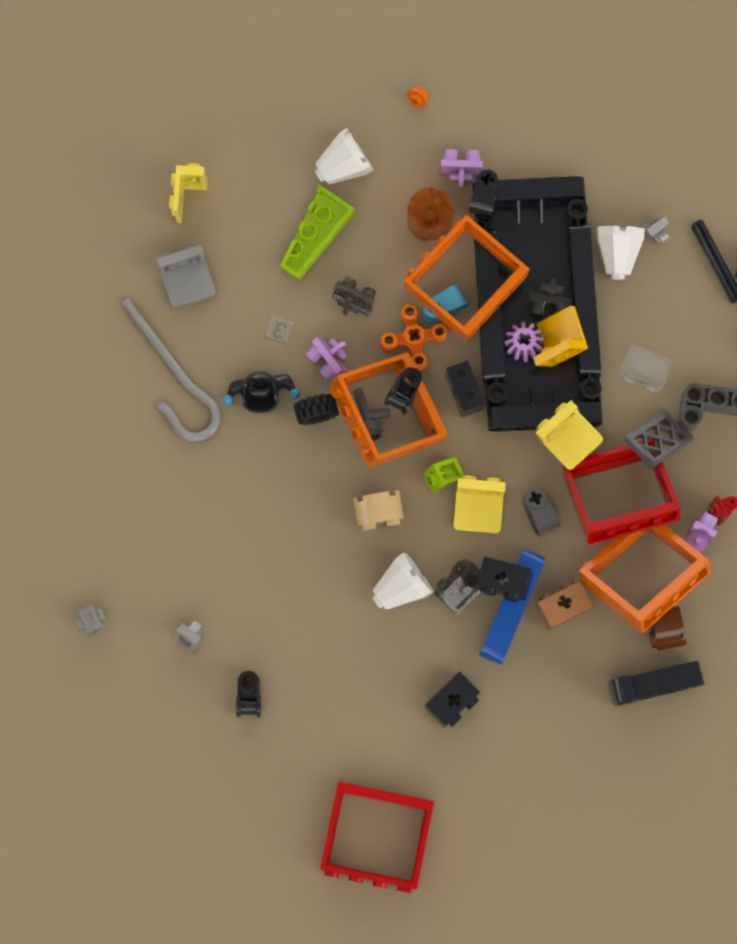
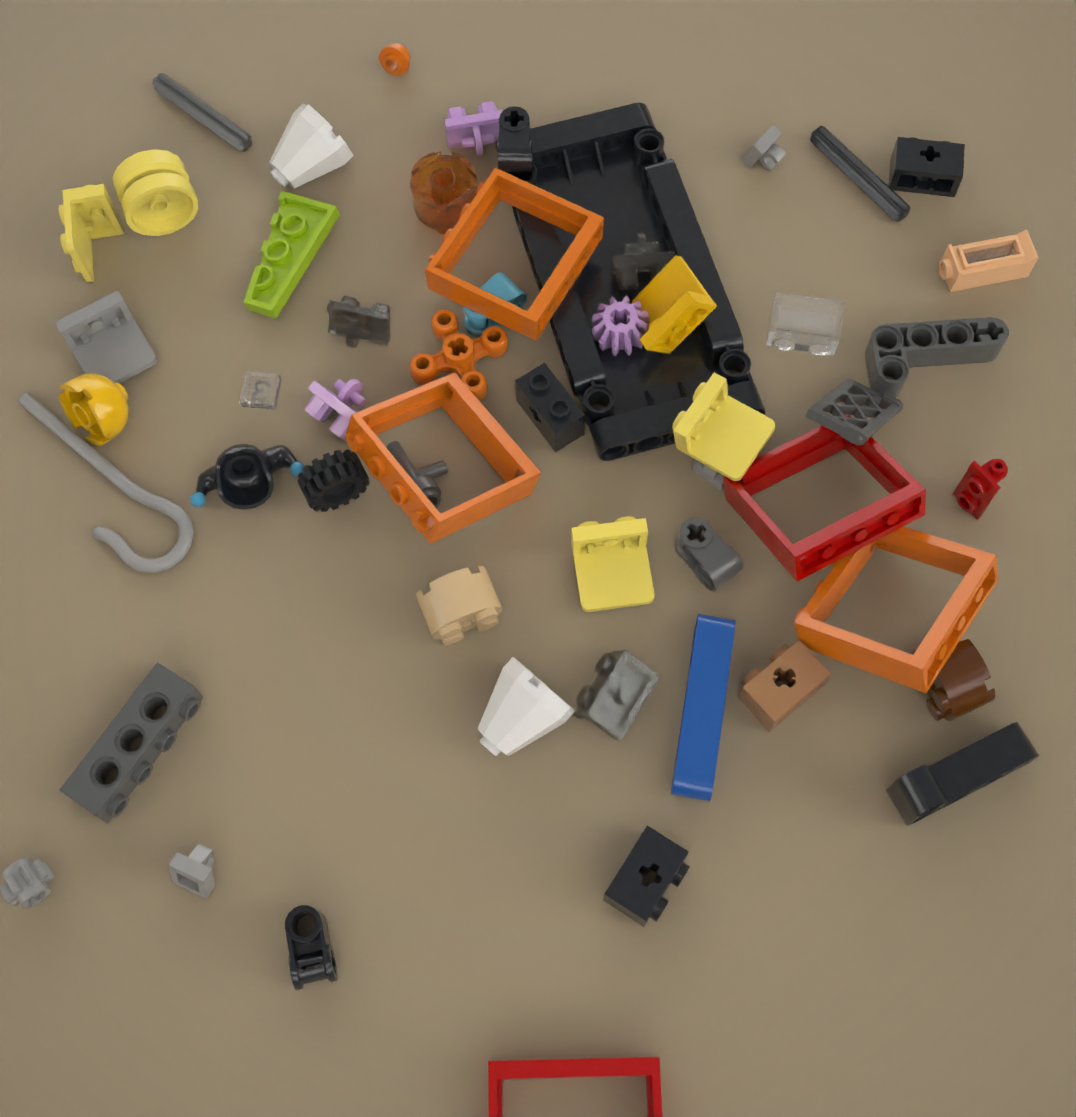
camera: 10 degrees left, 10 degrees down
(173, 320) = (96, 405): none -> yellow cylinder
(186, 519) = (112, 752): none -> dark grey brick
(235, 173) = (155, 192): none -> light yellow wheel
(275, 107) = (202, 112): none -> dark grey axle
(402, 393) = (459, 416): black piece -> none
(443, 474) = (546, 534): lime bracket -> none
(495, 570) = (664, 652): black brick -> none
(619, 249) = (720, 176): white cone -> none
(702, 532) = (964, 521): lavender hips -> none

